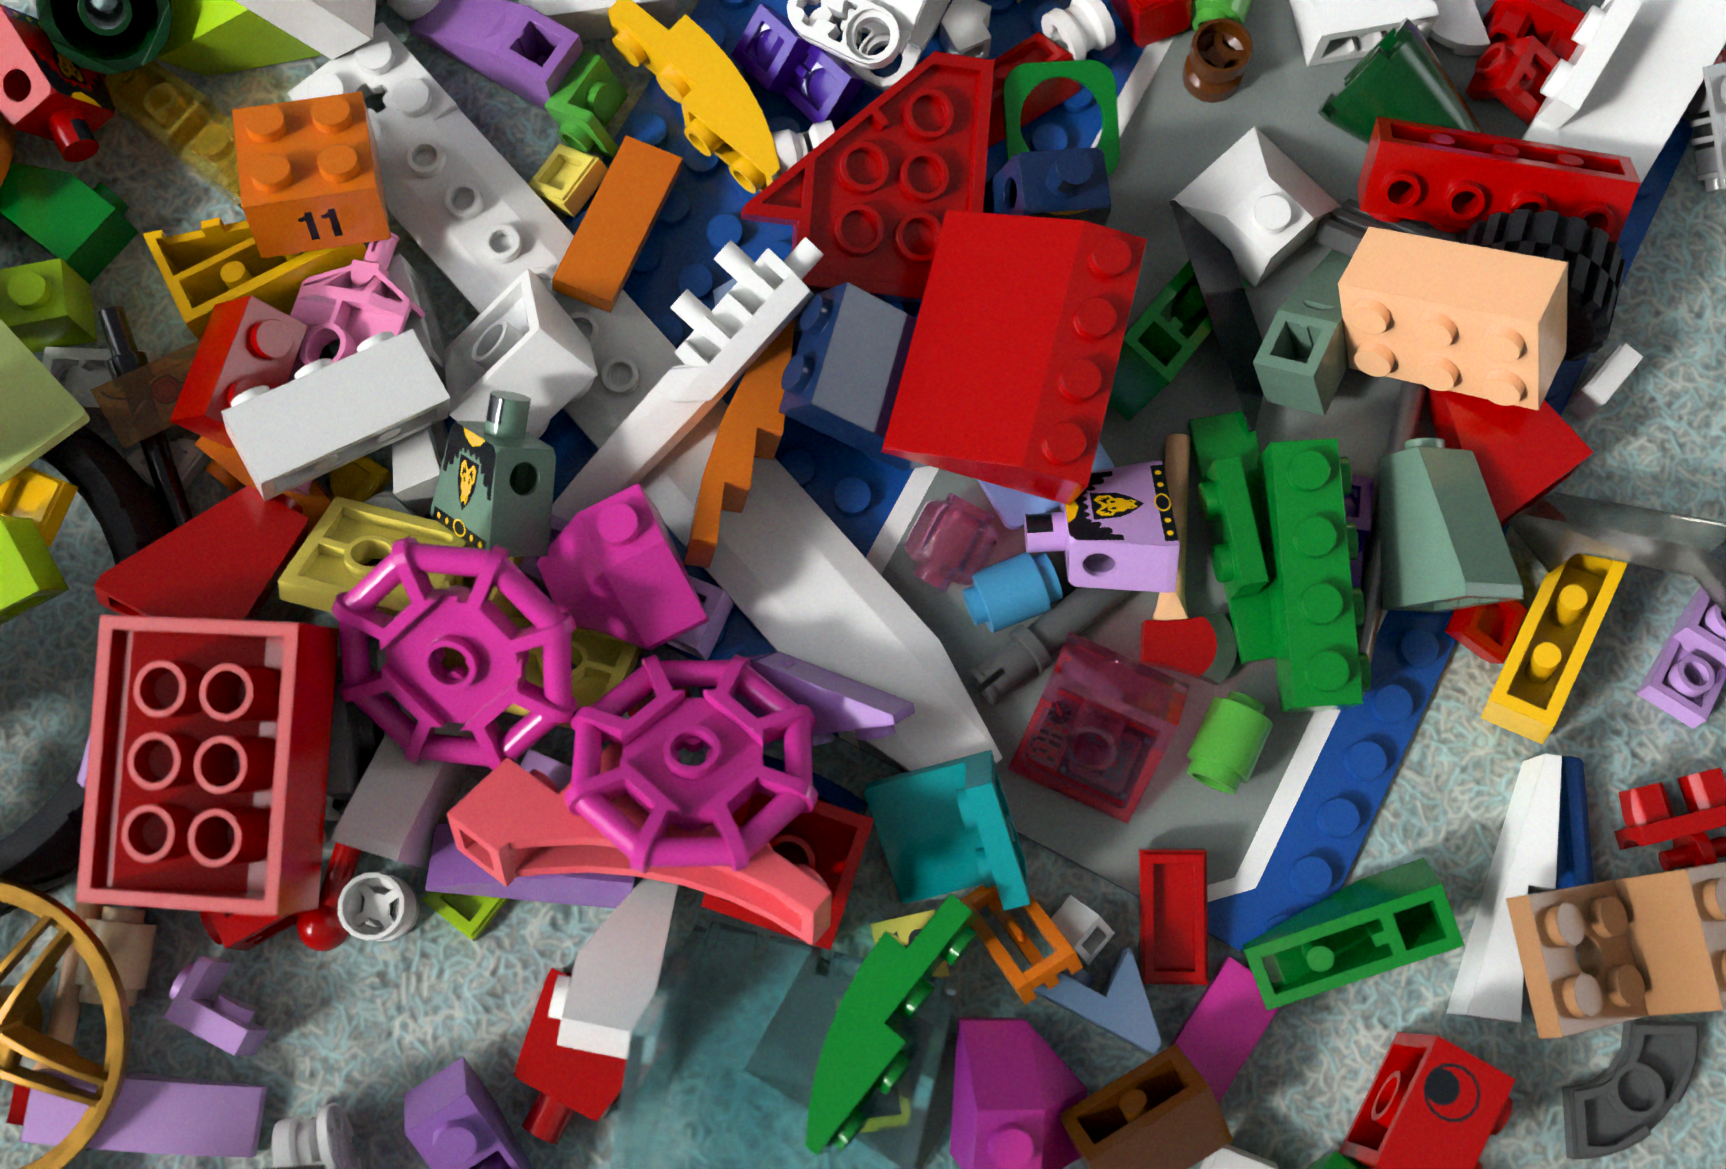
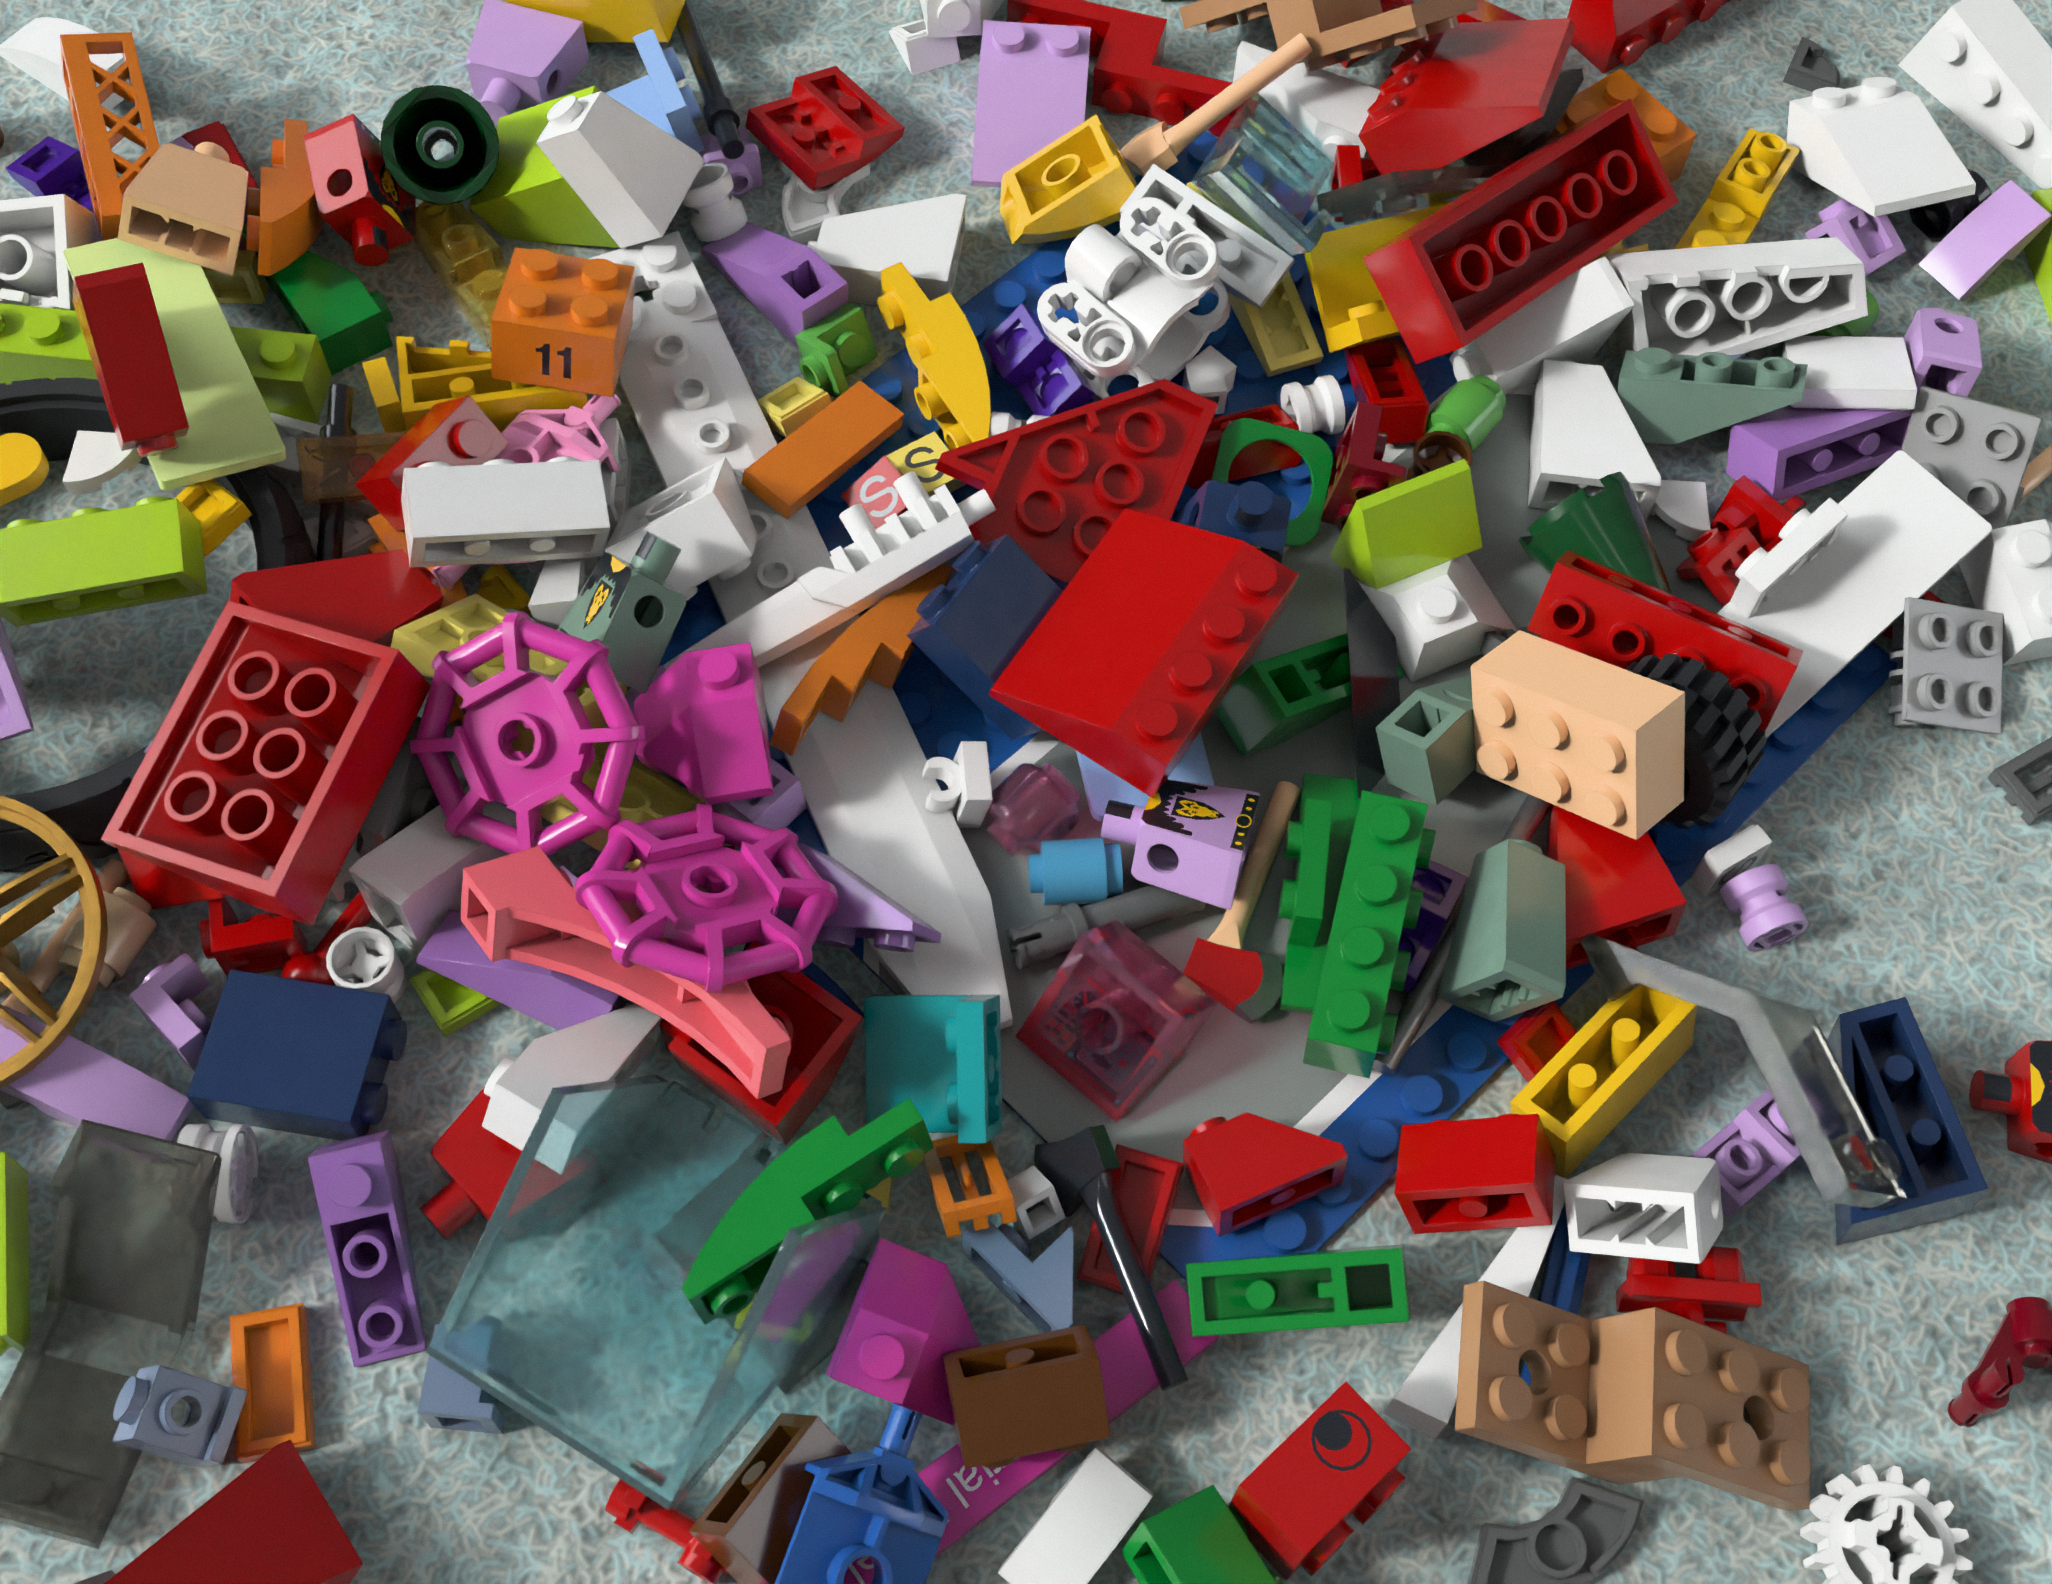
camera: 15 degrees right, 15 degrees down
(154, 297) = (384, 395): none -> yellow tile
(348, 1015) = (298, 1057): none -> dark blue brick
(690, 256) = (877, 493): none -> tile
(717, 211) = (922, 458): none -> light yellow tile
(883, 537) = (967, 783): none -> white tile
(1123, 883) = (1083, 1172): none -> black piece
(1148, 99) = (1359, 465): none -> dark red bracket
(1218, 138) = (1410, 527): none -> lime slope
(1229, 742) = (1240, 1070): bright green brick -> none
(1272, 834) = (1257, 1168): none -> red slope
(1474, 775) = (1476, 1174): none -> red brick
(1637, 759) = (1661, 1204): none -> white torso
(1645, 419) = (1763, 908): none -> lavender wheel

